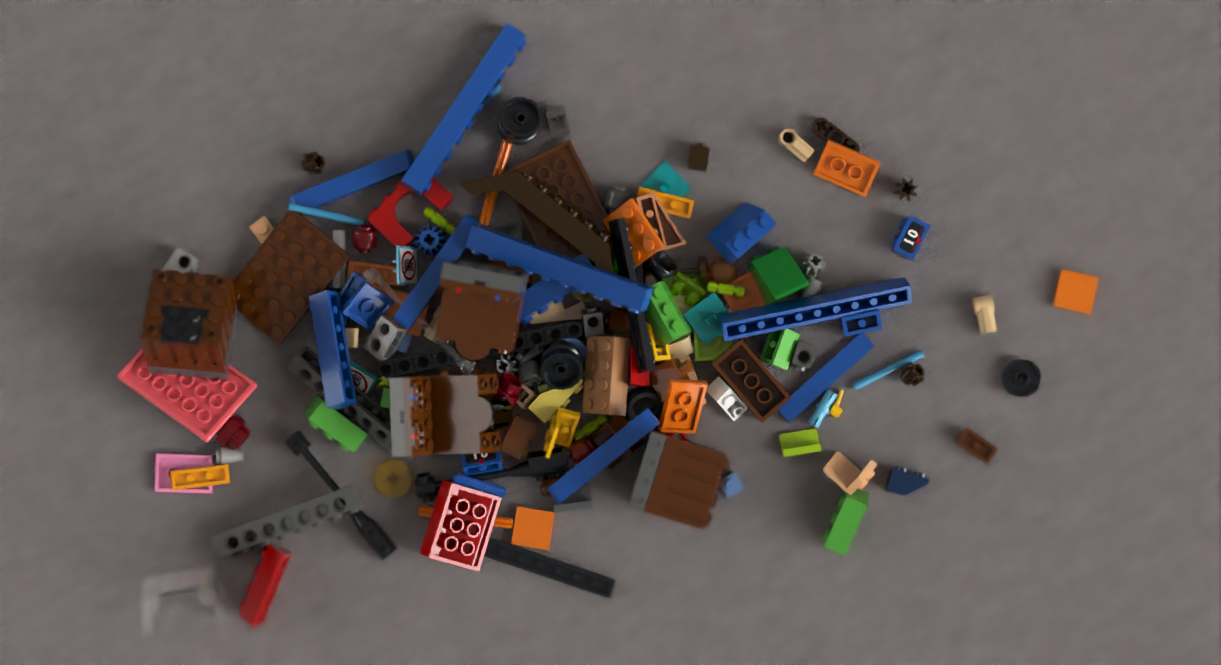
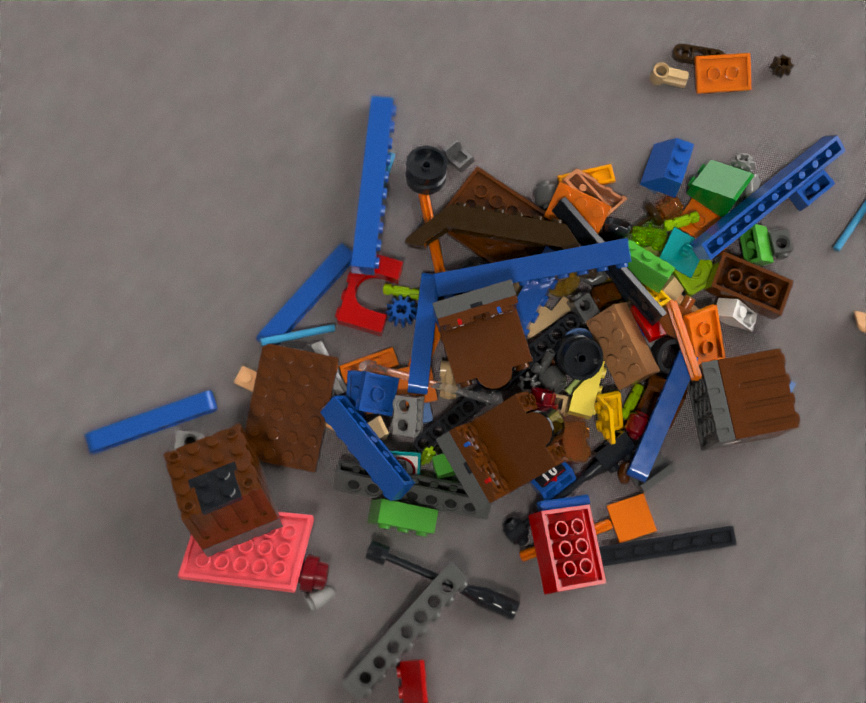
camera: 30 degrees left, 10 degrees down
(159, 225) = (150, 422): none -> blue beam
(171, 462) = (286, 637): bright pink tile -> none
(200, 477) = (303, 632): light orange tile -> none
(312, 163) = (263, 297): dark brown gear -> none
(364, 238) = (342, 339): dark red head -> none
(386, 487) = (492, 542): clear yellow plate -> none
(406, 265) = (393, 341): piece -> none
(654, 402) = (684, 341): none -> orange axle
(666, 181) = (578, 158): teal piece -> none
(698, 157) = (594, 126): dark brown brick -> none
(799, 442) = (819, 320): lime panel -> none
(822, 408) = (821, 280): medium azure pin -> none
(826, 376) = (808, 251): blue tile -> none
(835, 409) = (832, 276): yellow hand -> none
(910, 237) = (809, 102): brick -> none

